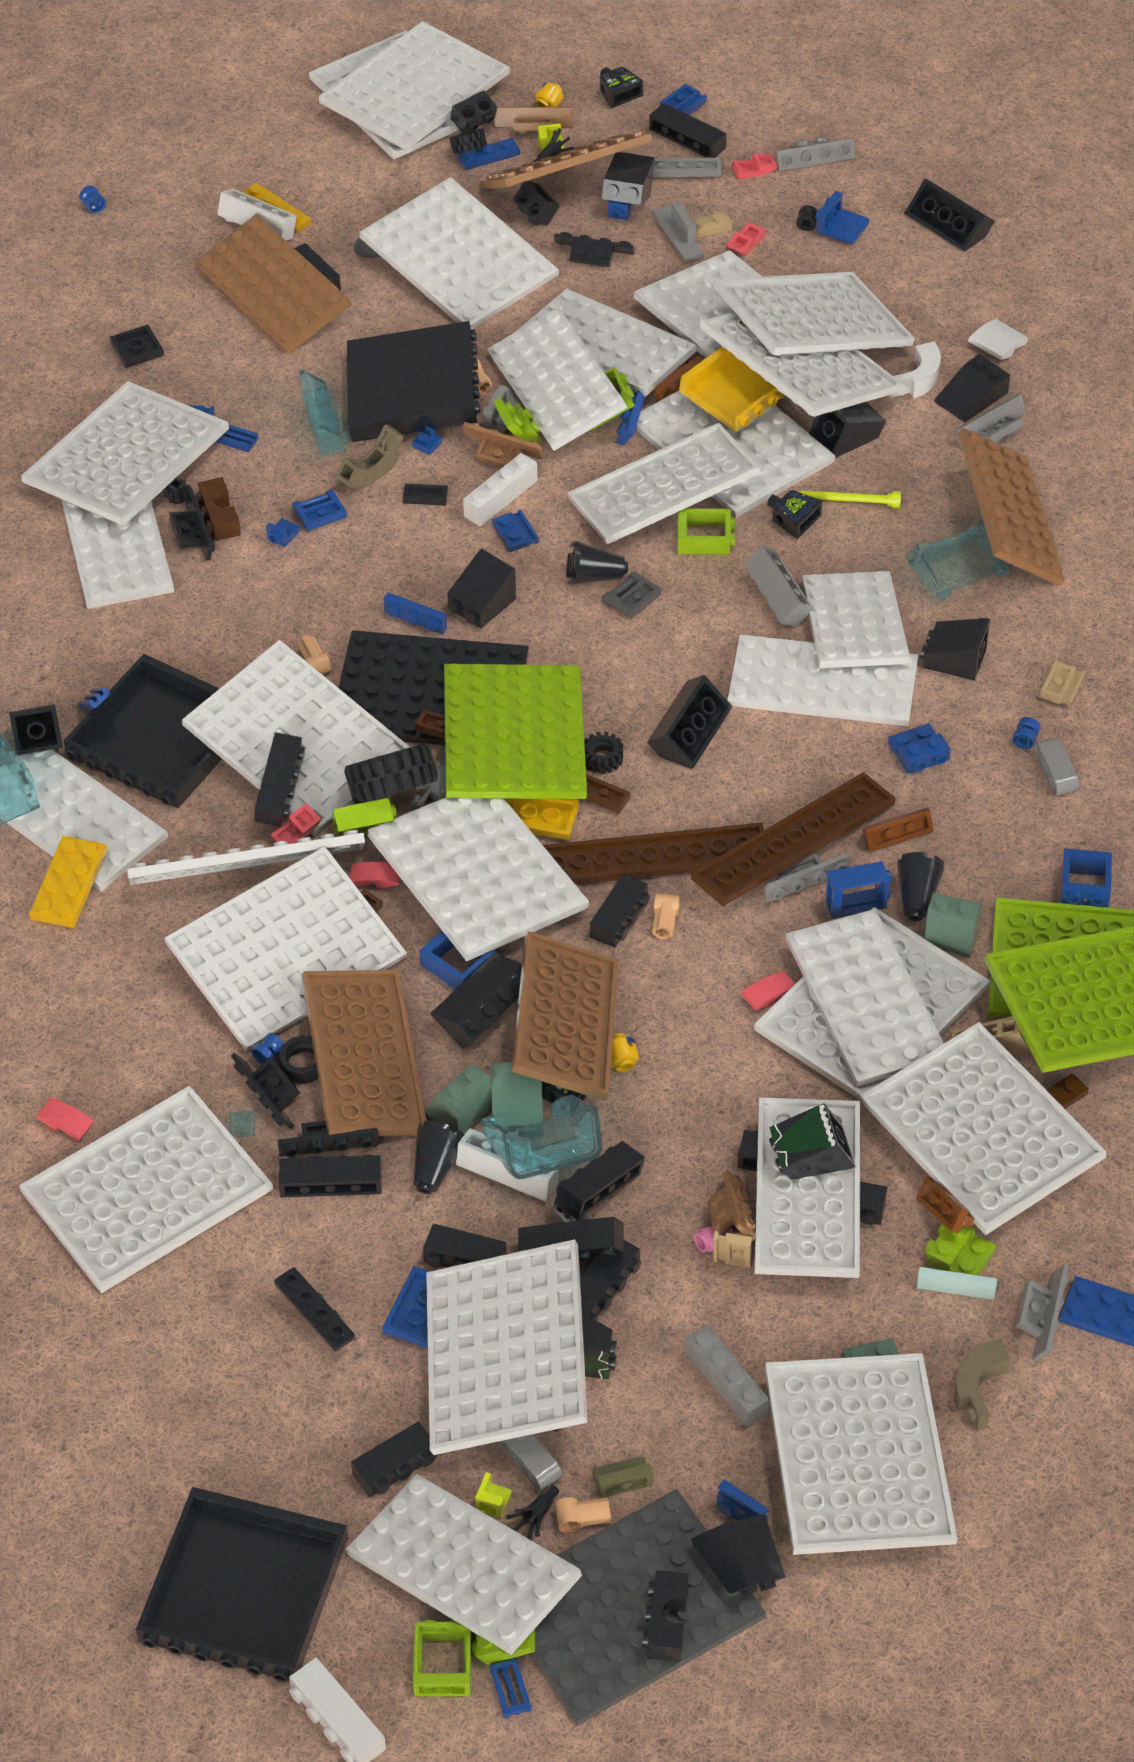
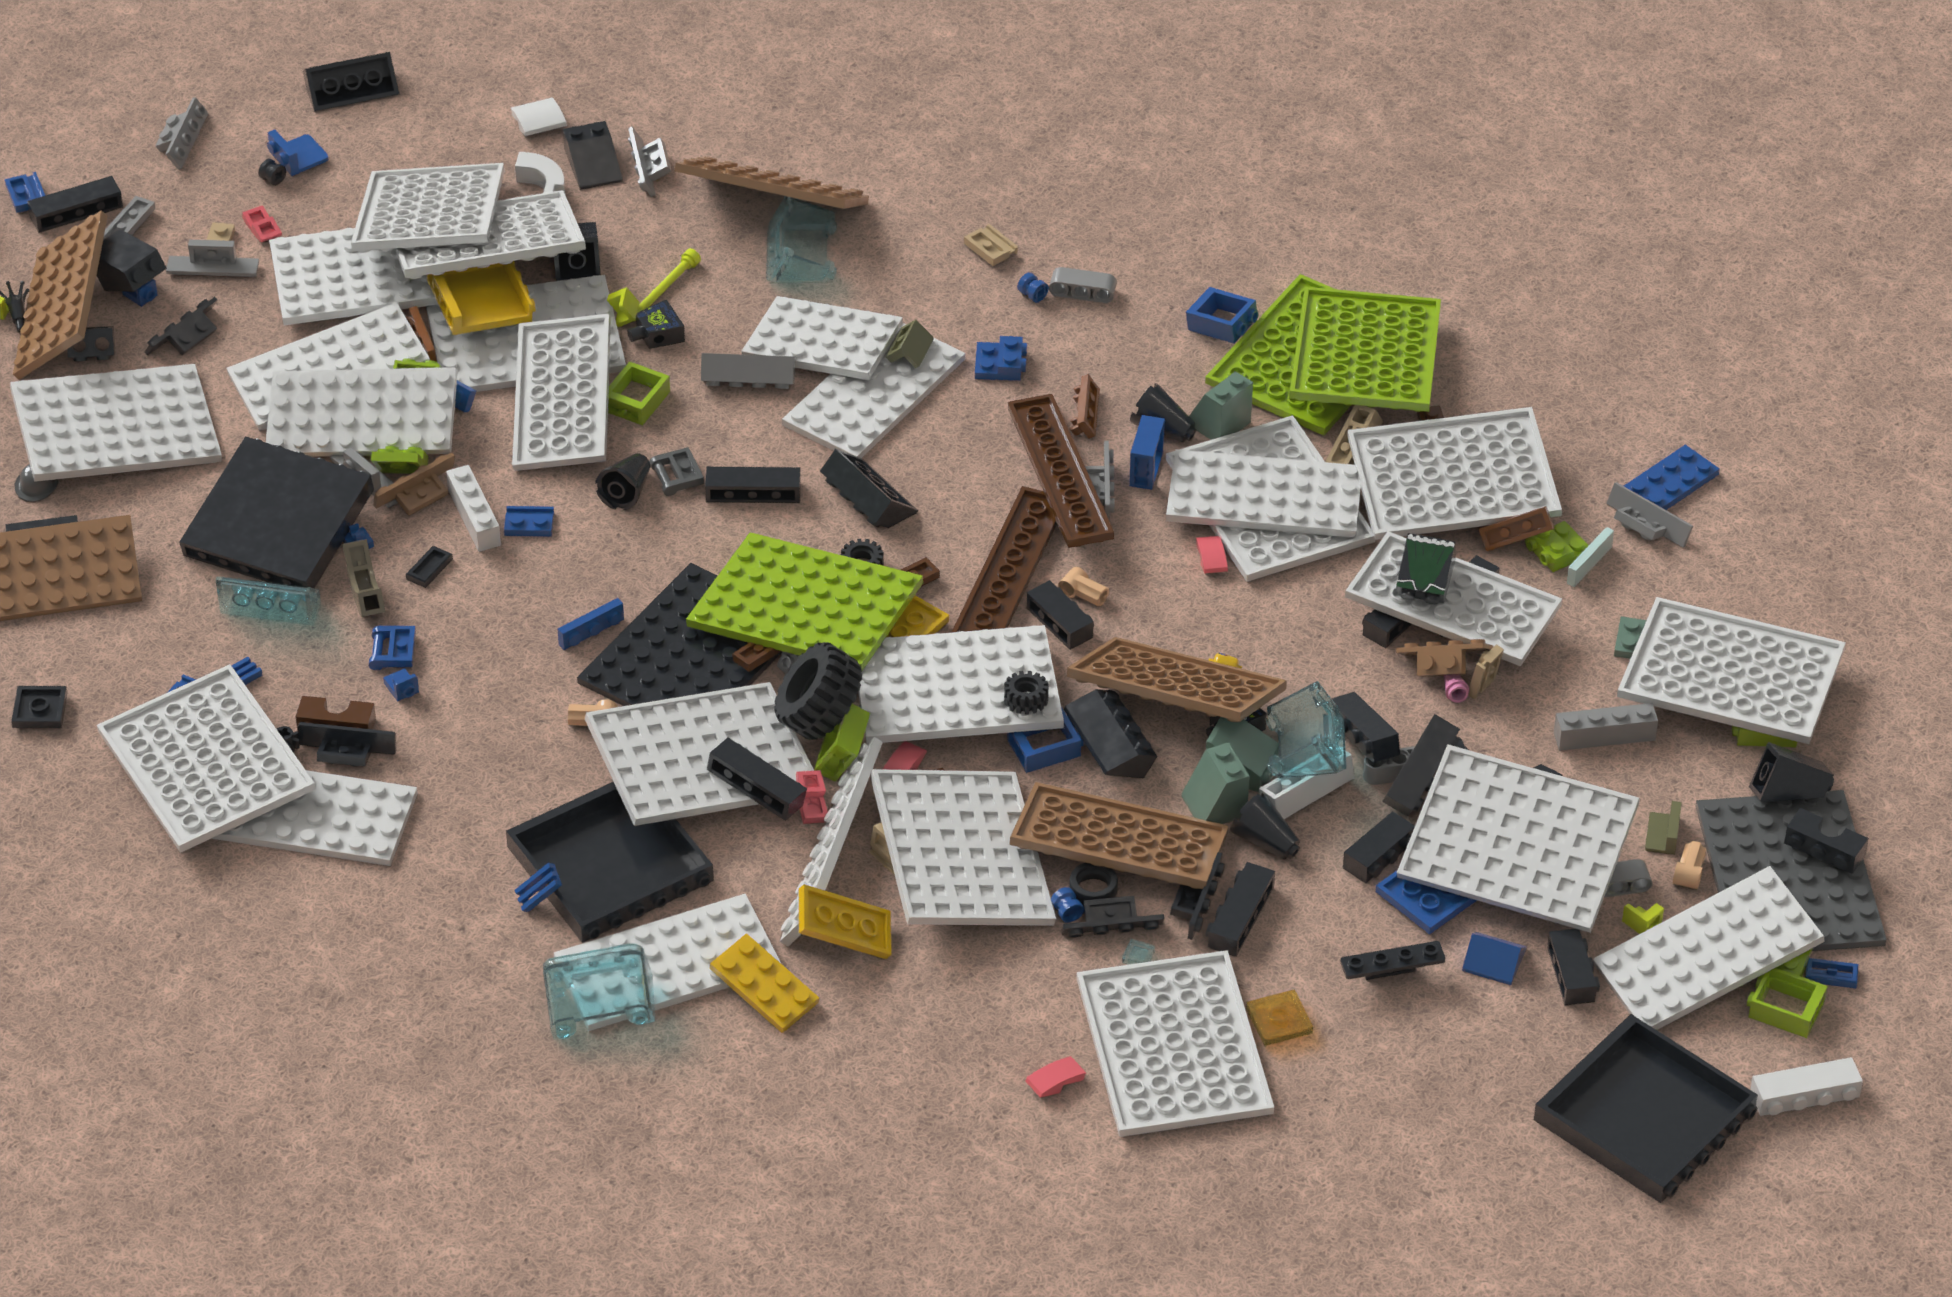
camera: 65 degrees left, 5 degrees down
(36, 729) = (549, 934): black slope -> none
(145, 899) = (844, 921): none -> yellow plate
(215, 1253) = (1279, 1017): none -> clear yellow plate
(381, 1392) = (1493, 958): none -> blue slope
(475, 922) = (1026, 701): none -> black tyre
(483, 589) = (602, 562): black slope -> none
(535, 1511) = (1674, 895): black piece -> none
(645, 647) = (753, 484): none -> black brick
(736, 1503) = (1739, 763): blue plate -> none
(758, 165) = (162, 181): coral slope -> none
(801, 480) = (625, 305): none -> neon yellow panel
(881, 678) = (910, 343): none -> olive panel
(956, 647) = (908, 284): black slope -> none
(978, 1366) = (1689, 586): dark tan arch -> none

